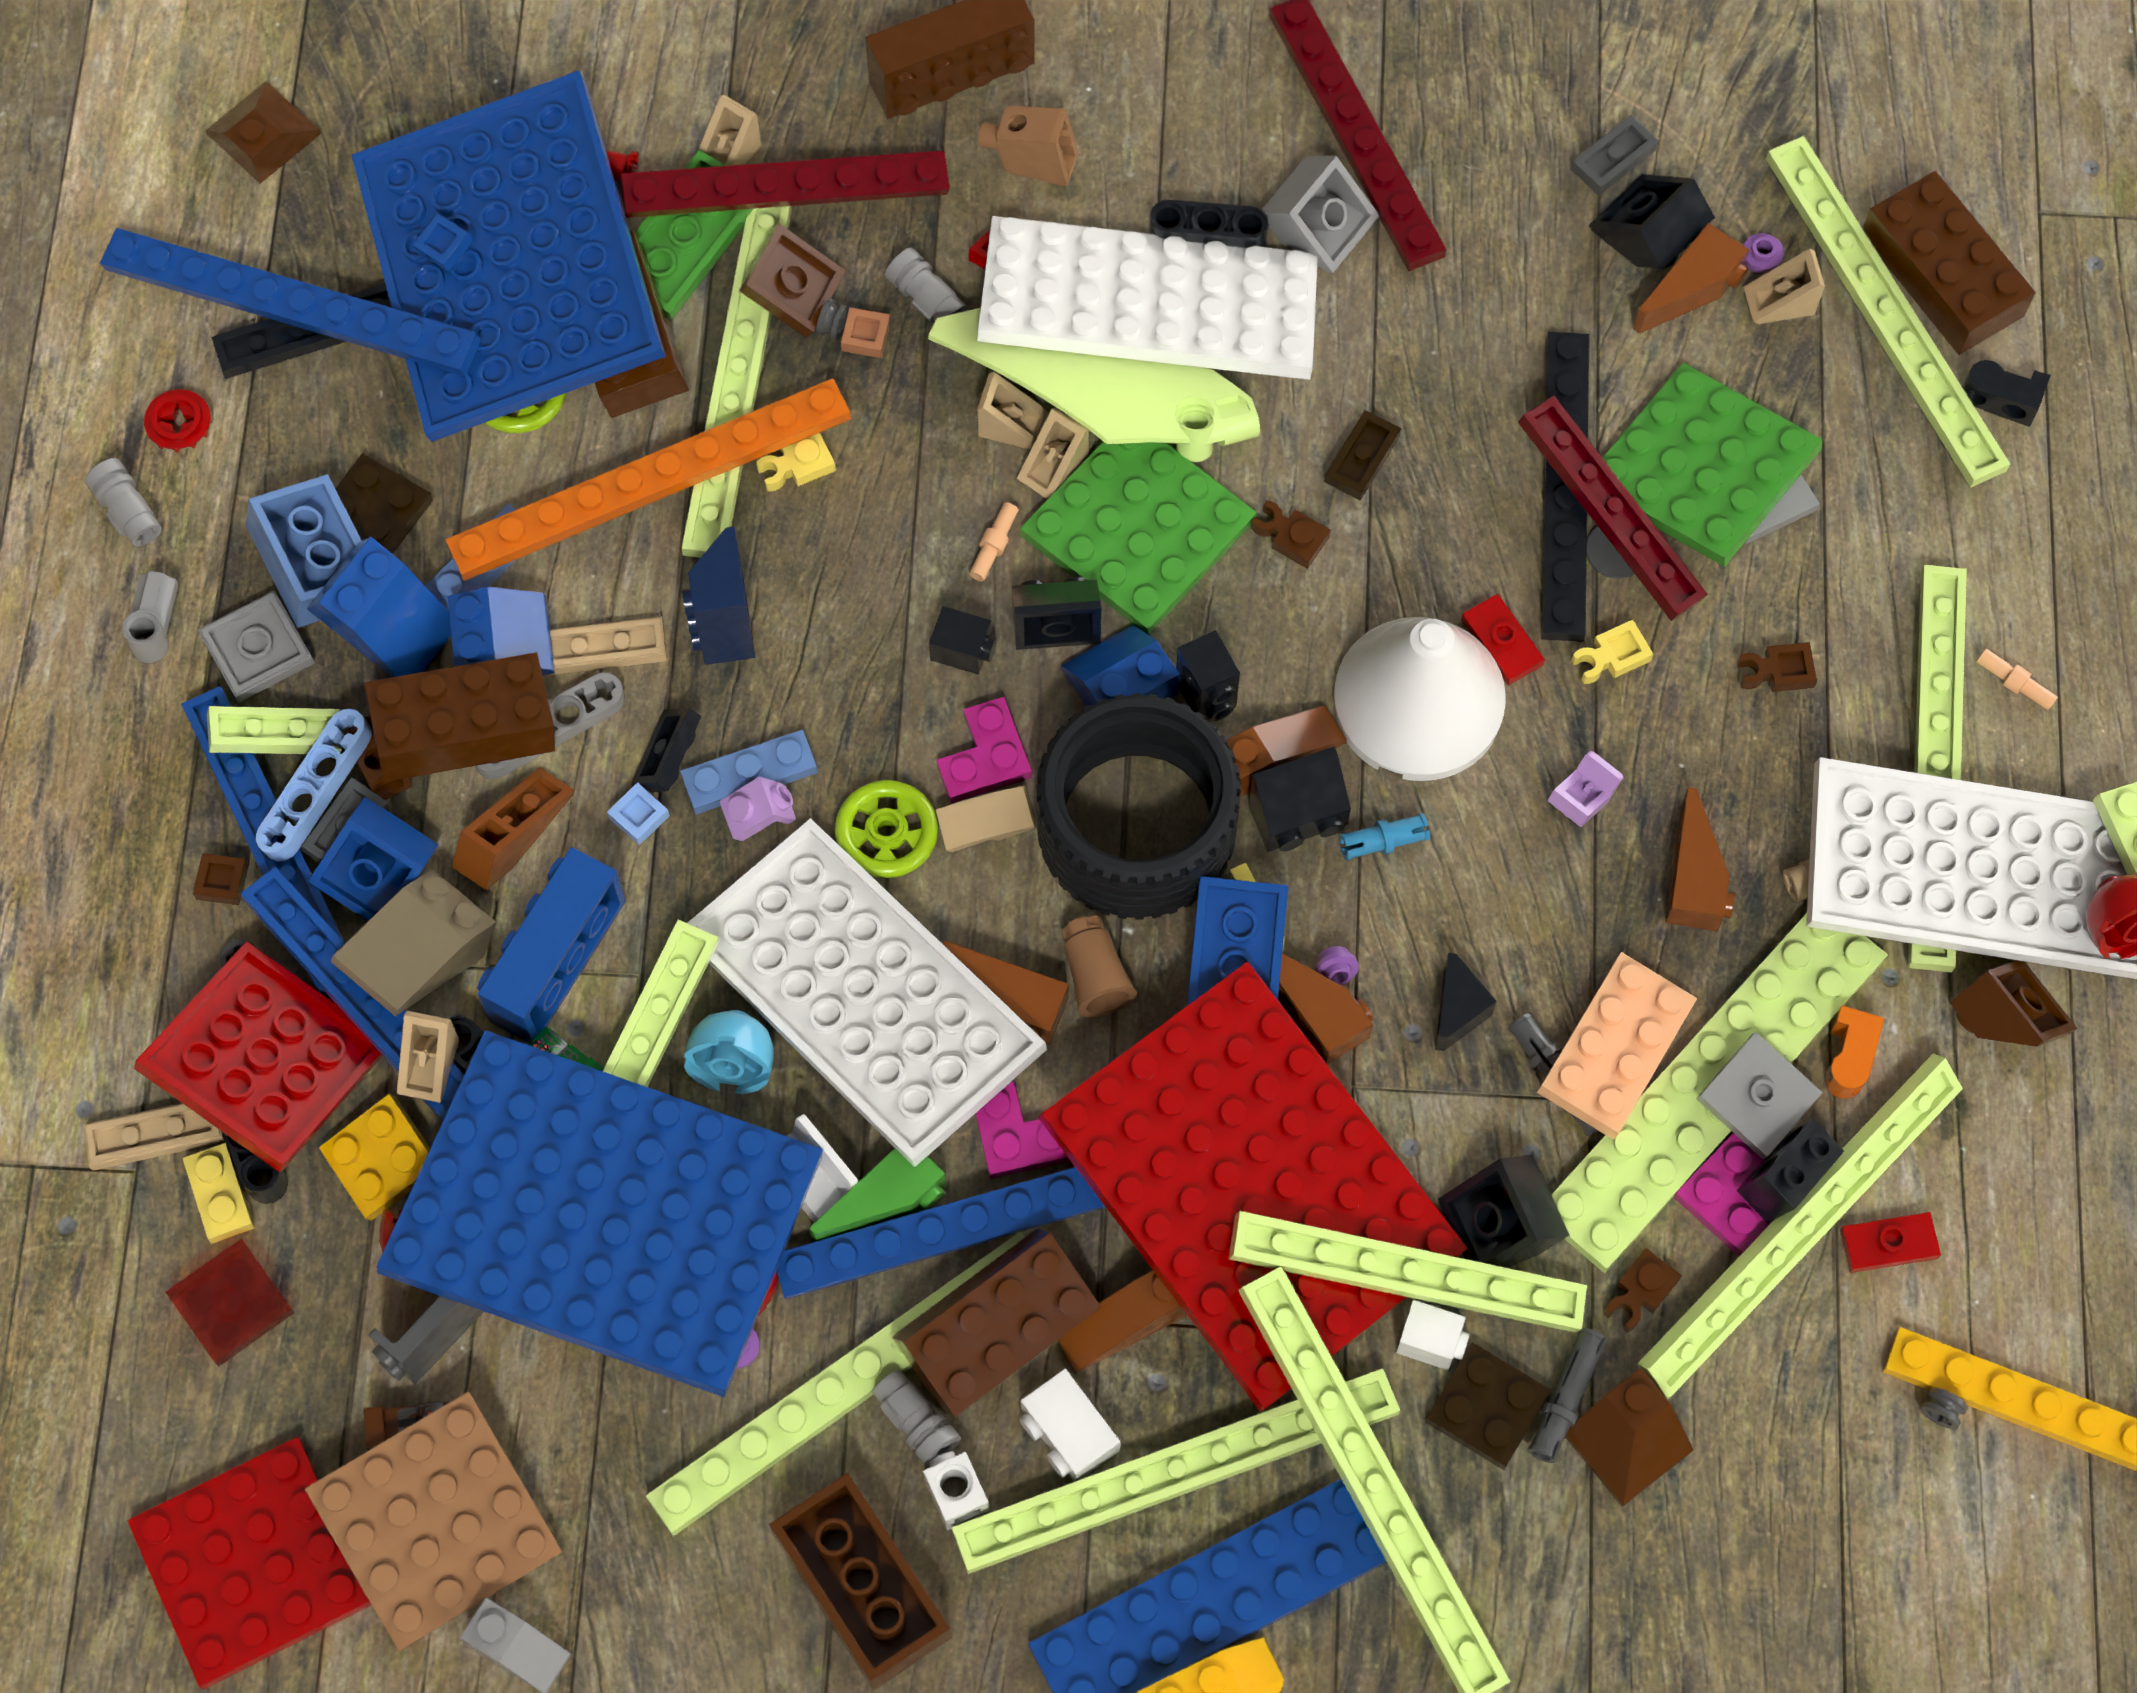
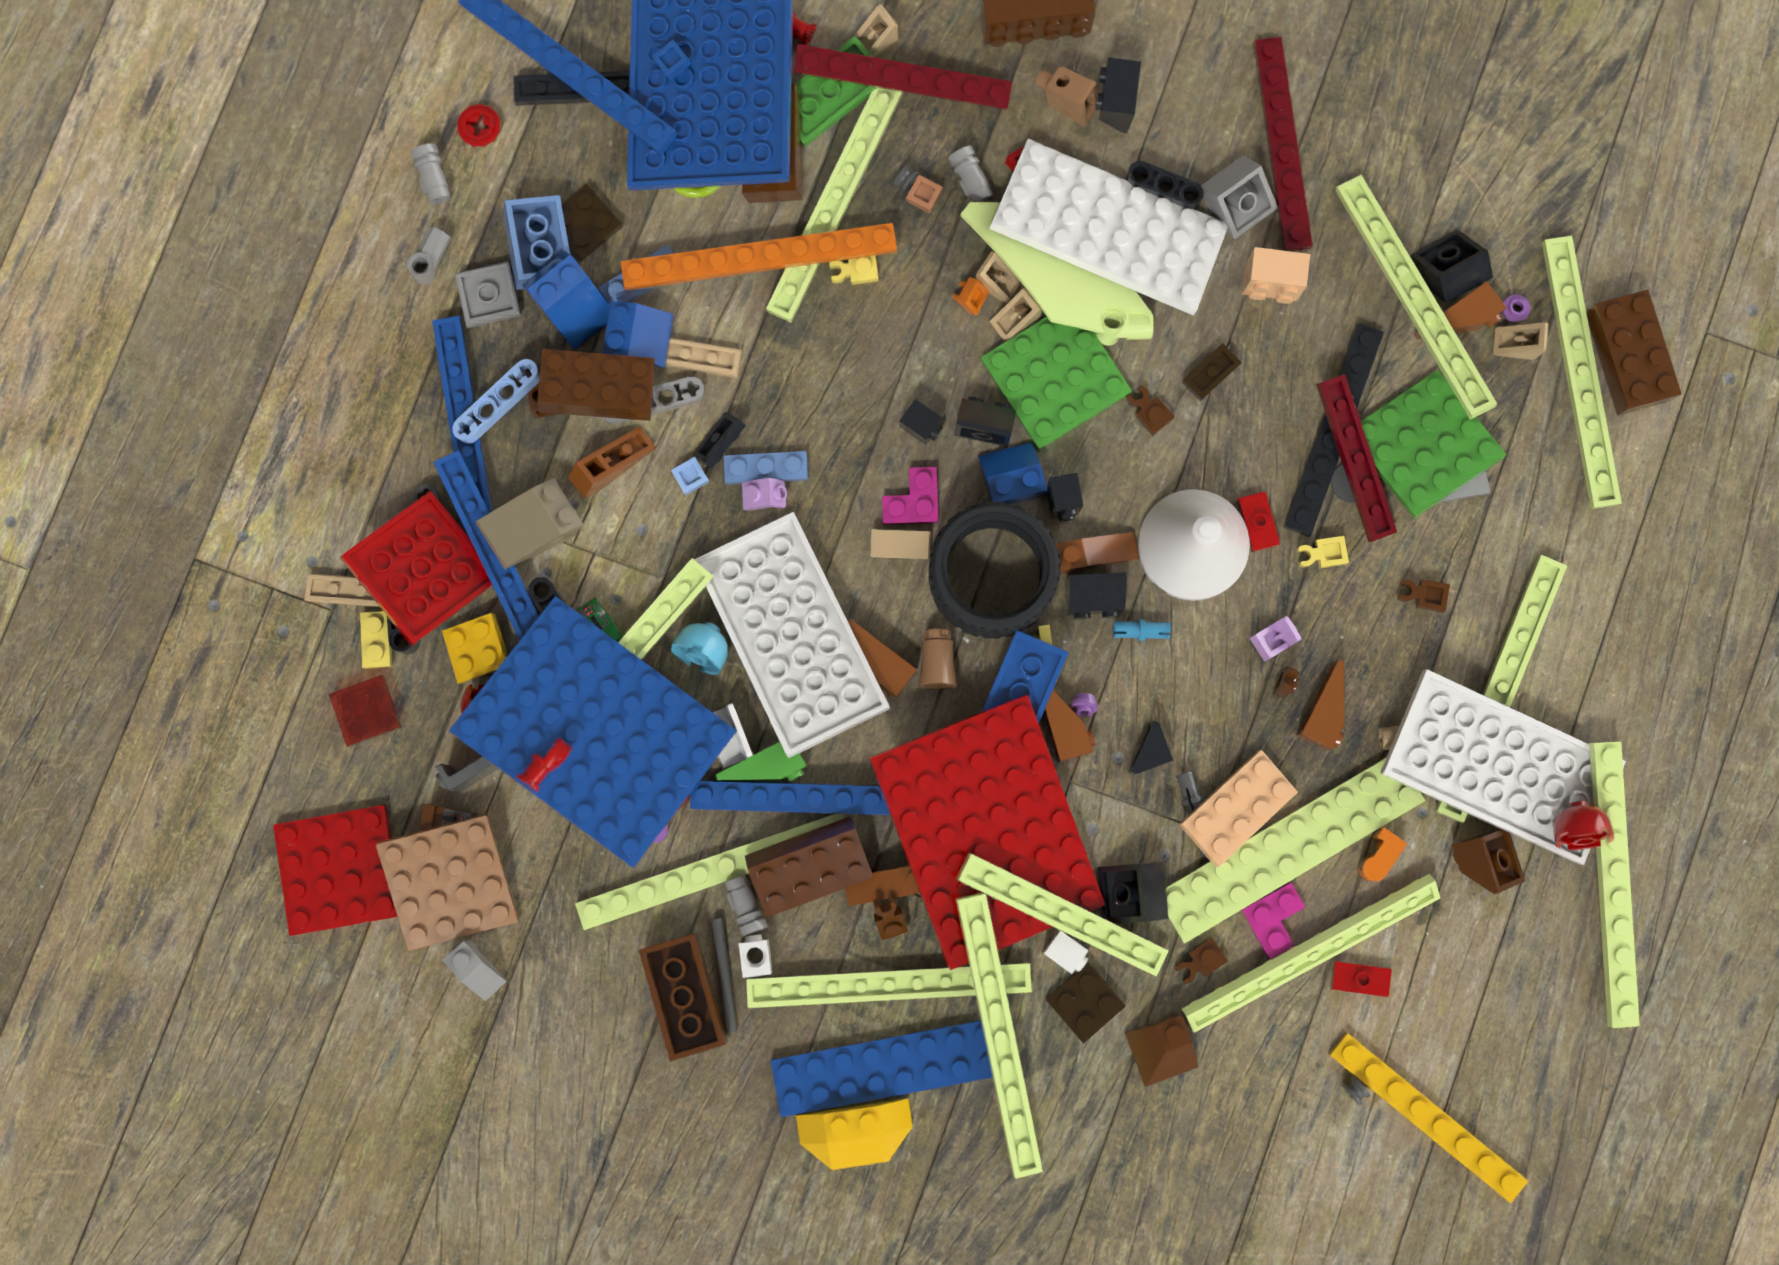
camera: 20 degrees right, 15 degrees up
(220, 879) = (427, 441): reddish brown plate -> none
(265, 729) = (479, 354): yellowish green plate -> none
(336, 817) = (510, 430): dark grey plate -> none
(372, 859) = (520, 460): blue slope -> none
(426, 1056) = (516, 601): tan slope -> none
(539, 1270) = (540, 767): none -> red connector
(551, 945) = (611, 549): blue brick -> none
(718, 603) = (777, 357): dark blue slope -> none
(792, 280) = (887, 145): reddish brown plate -> none
(909, 802) = (857, 518): lime plate -> none
(914, 1536) = (724, 975): none -> dark grey bar
(979, 448) = (972, 295): none -> orange tile
(993, 542) = (961, 360): light nougat bar -> none
(1009, 1142) = (853, 753): dark pink plate -> none
(1069, 1427) = (833, 940): white brick -> none
(1103, 119) = (1118, 93): none -> black slope
(1146, 1367) = (889, 919): none -> reddish brown plate
(1408, 295) = (1275, 275): none -> light nougat brick
(1561, 1409) = (1129, 1018): dark grey pin -> none
(1614, 155) = (1444, 211): dark grey plate -> none
(1618, 270) = (1416, 297): none -> yellowish green plate
(1624, 845) = (1286, 682): none -> reddish brown plate
(1759, 1095) = (1313, 867): light grey plate -> none
(1790, 1171) = (1315, 921): black brick -> none
(2005, 392) = (1637, 454): black leg -> none
(2017, 679) = (1572, 646): light nougat bar -> none

